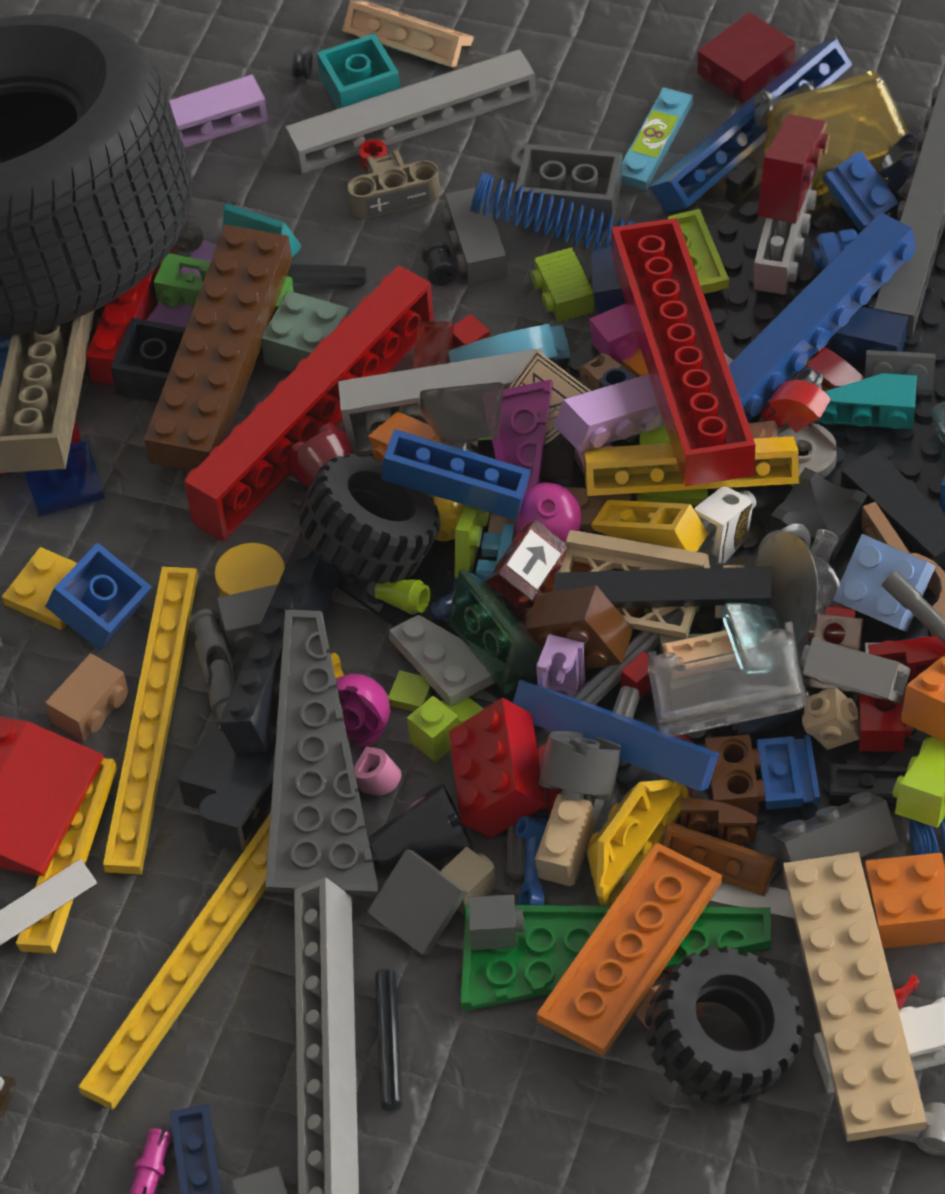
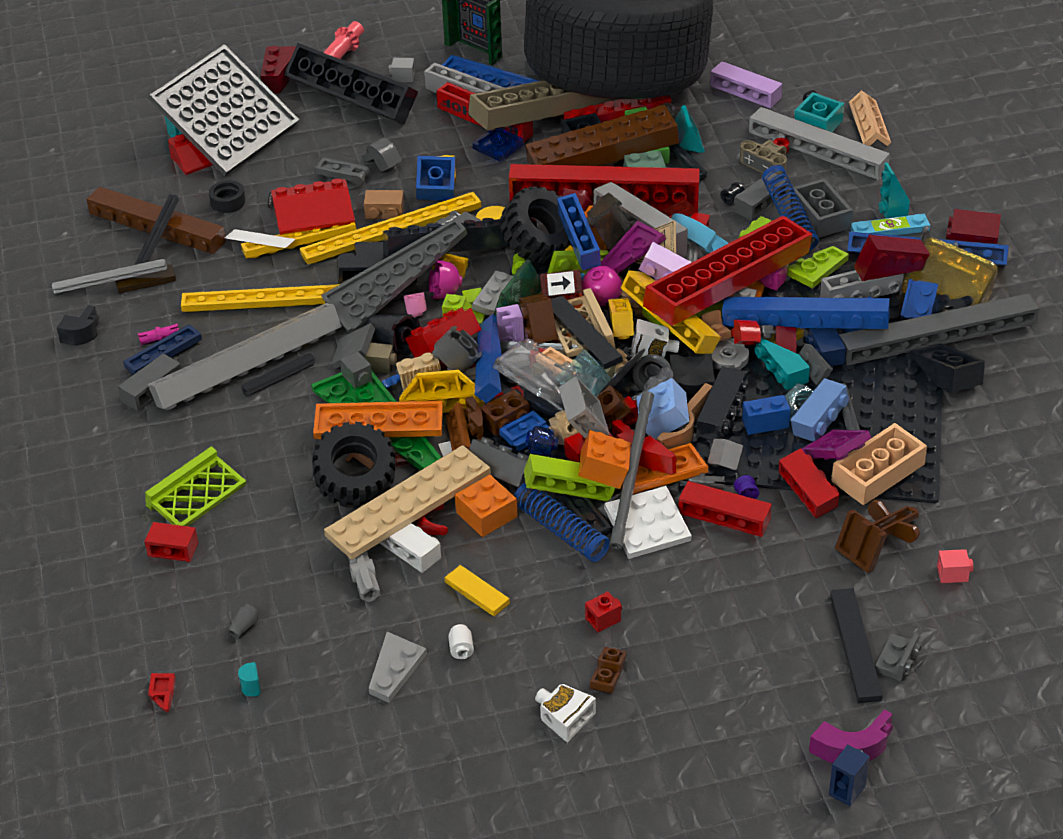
camera: 55 degrees right, 10 degrees down
(618, 95) = (893, 197): none -> teal slope
(844, 760) = (541, 441): none -> clear blue head

